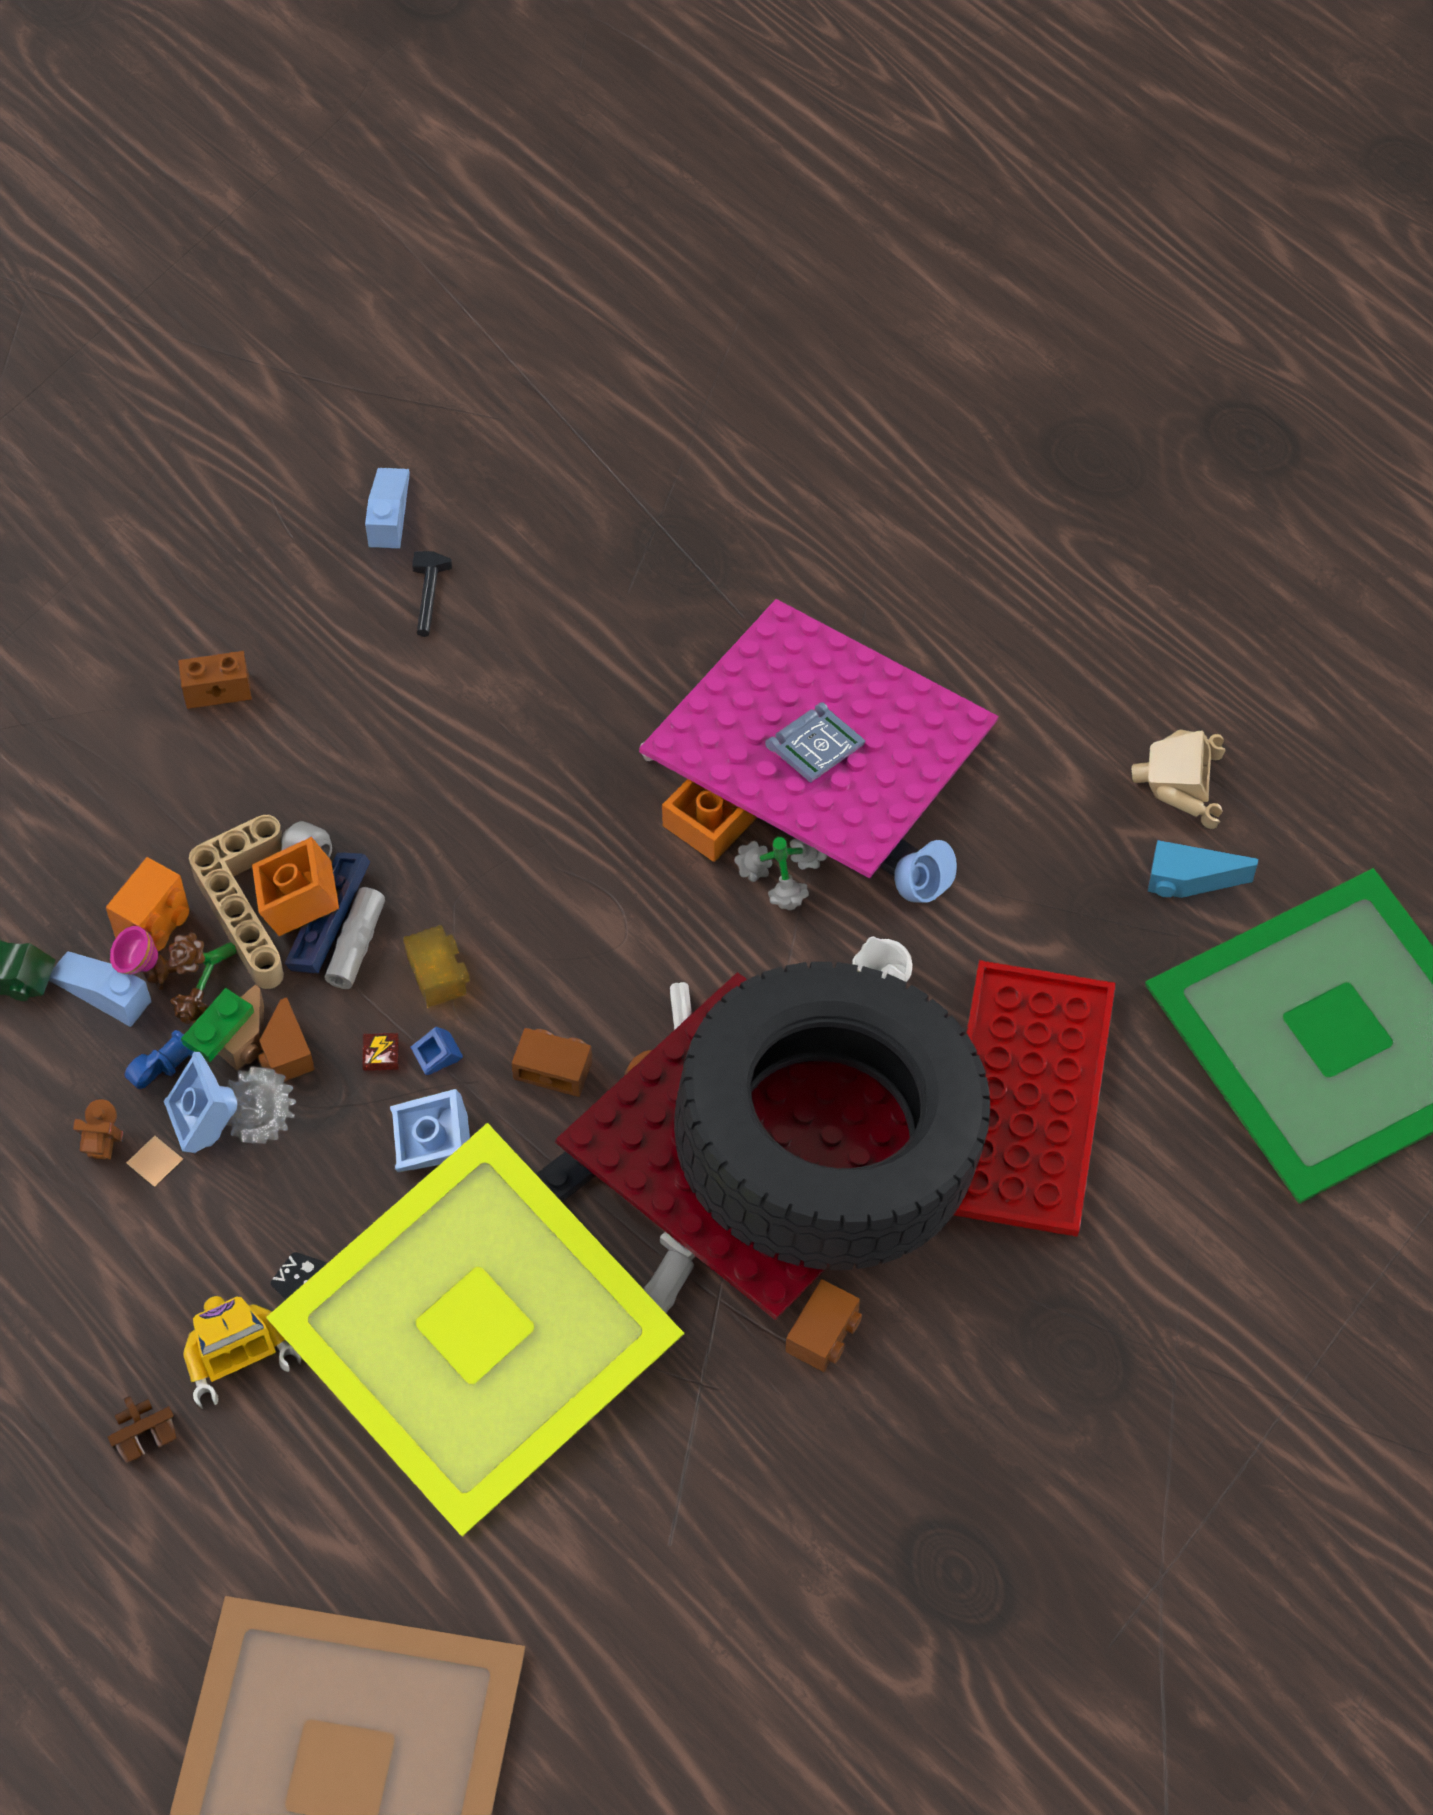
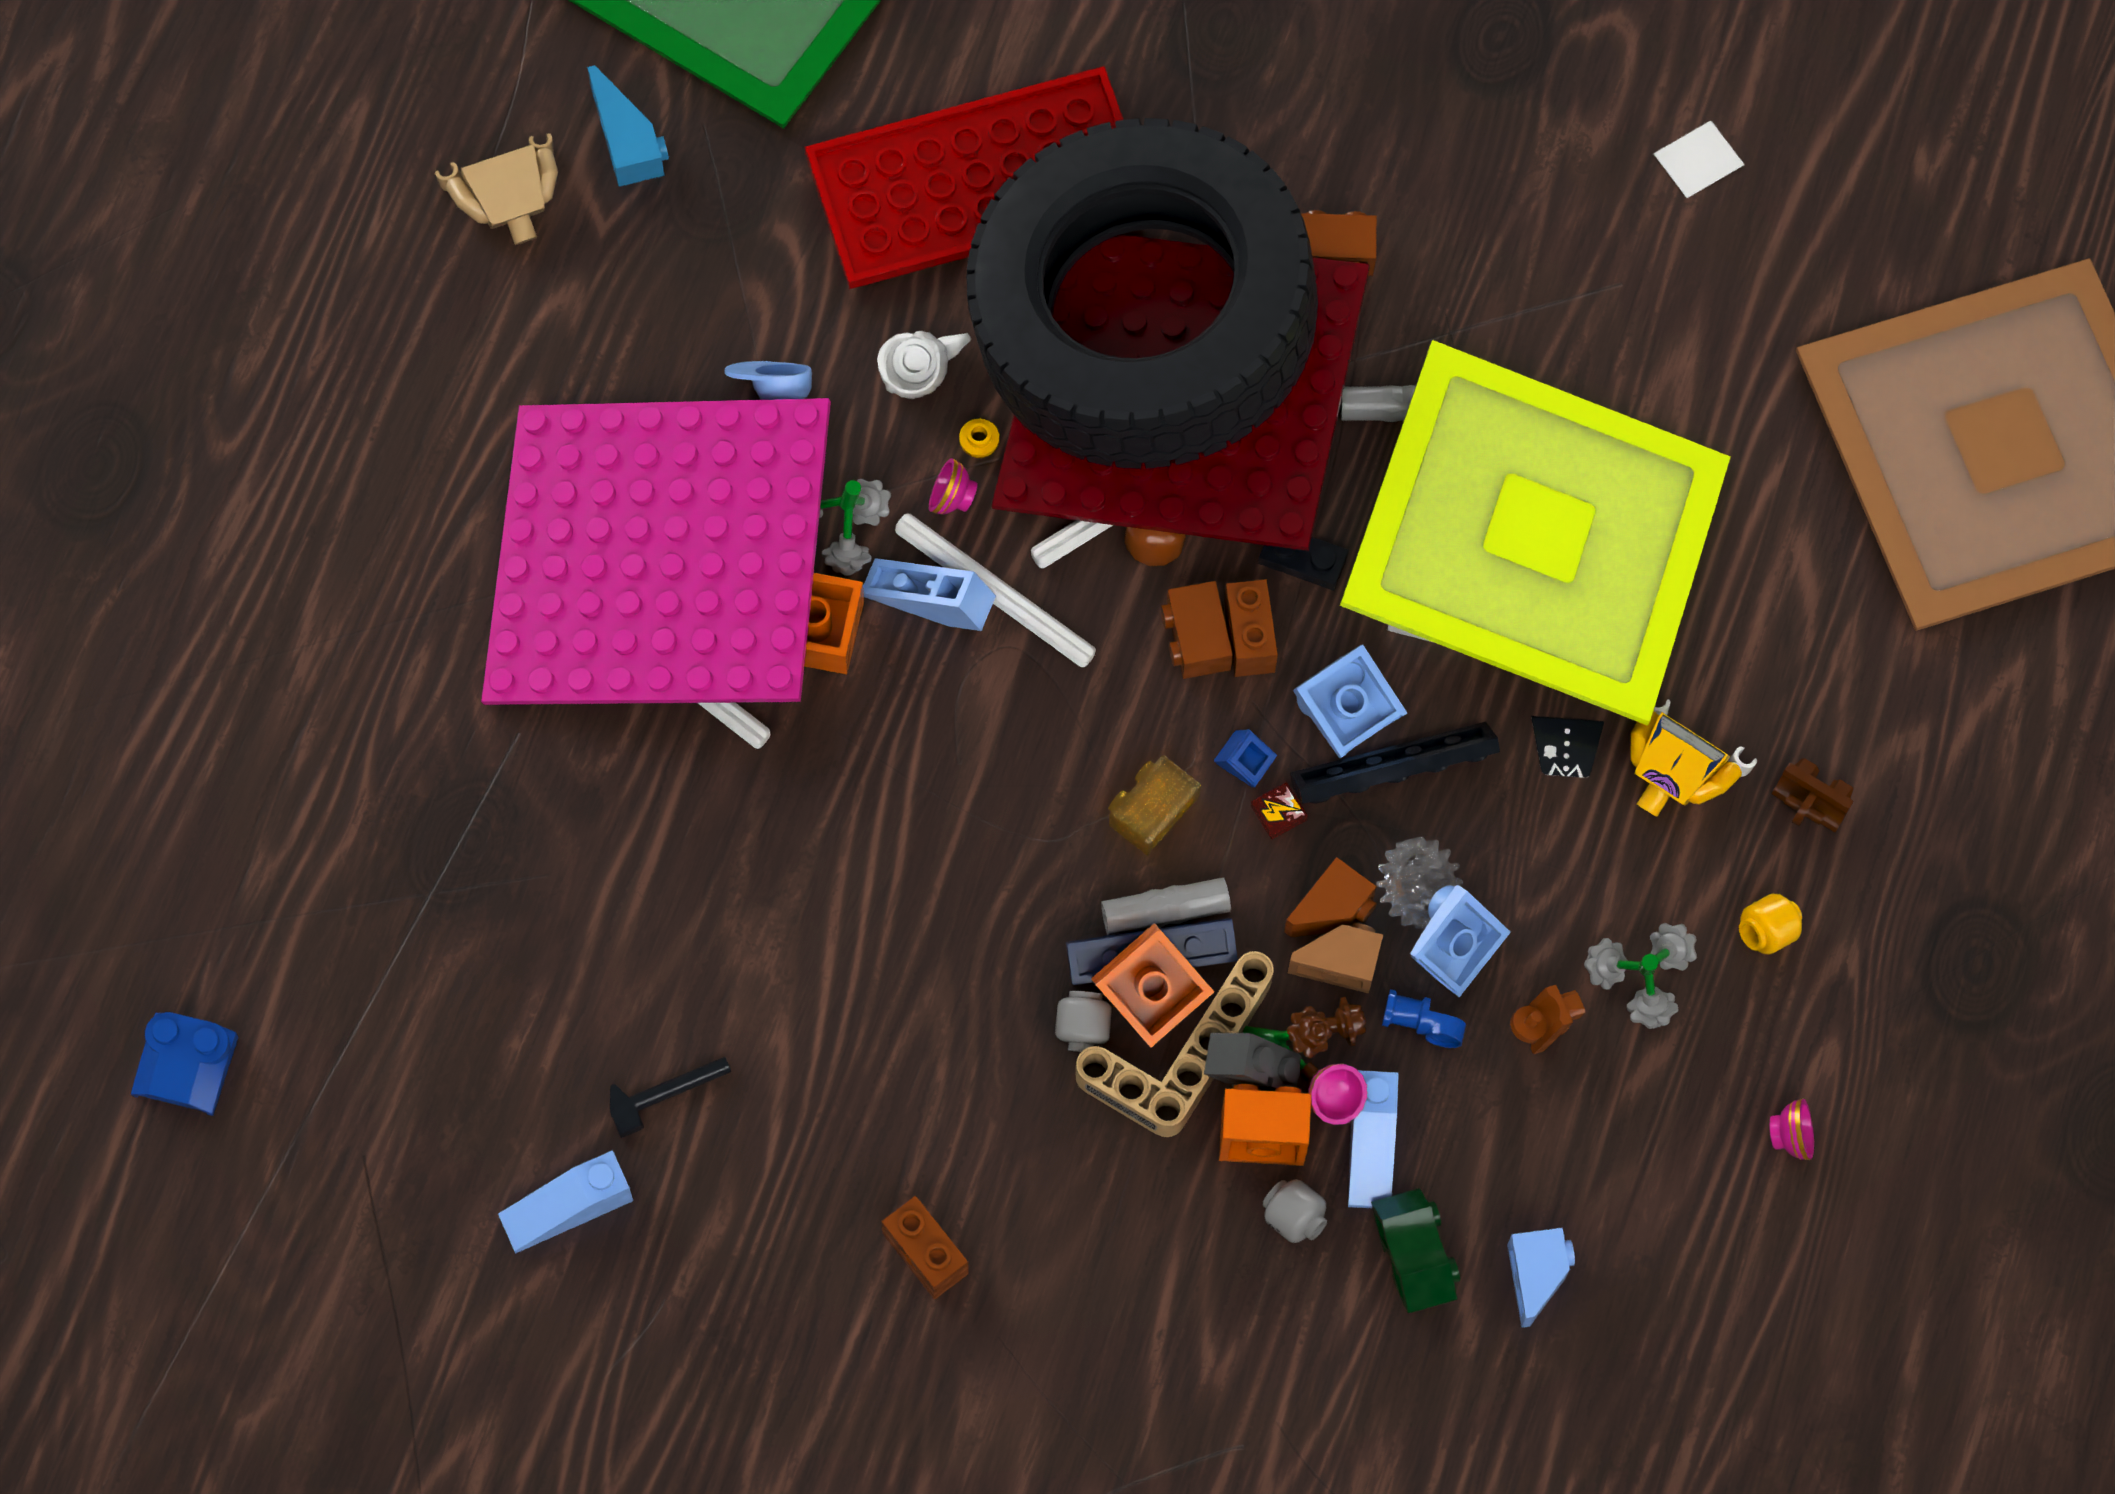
camera: 120 degrees left, 10 degrees up
(64, 1337) = (1770, 924): none -> yellow head
(65, 1219) = (1670, 948): none -> light grey plant
(82, 907) = (1295, 1210): none -> light grey head
(154, 1161) = (1527, 967): light nougat sticker -> none
(196, 910) = (1251, 1060): none -> dark grey piece
(217, 1024) = (1363, 964): green plate -> none
(363, 1143) = (1394, 763): none -> black plate
(530, 1095) = (1250, 628): none -> dark orange brick
(622, 347) = (184, 1061): none -> blue slope
(669, 947) = (1006, 597): none -> white axle
(687, 900) = (932, 592): none -> light blue slope
(749, 1676) = (1699, 159): none -> white sticker
(763, 952) = (952, 489): none -> dark pink piece
(815, 742) = (685, 534): sand blue piece -> none

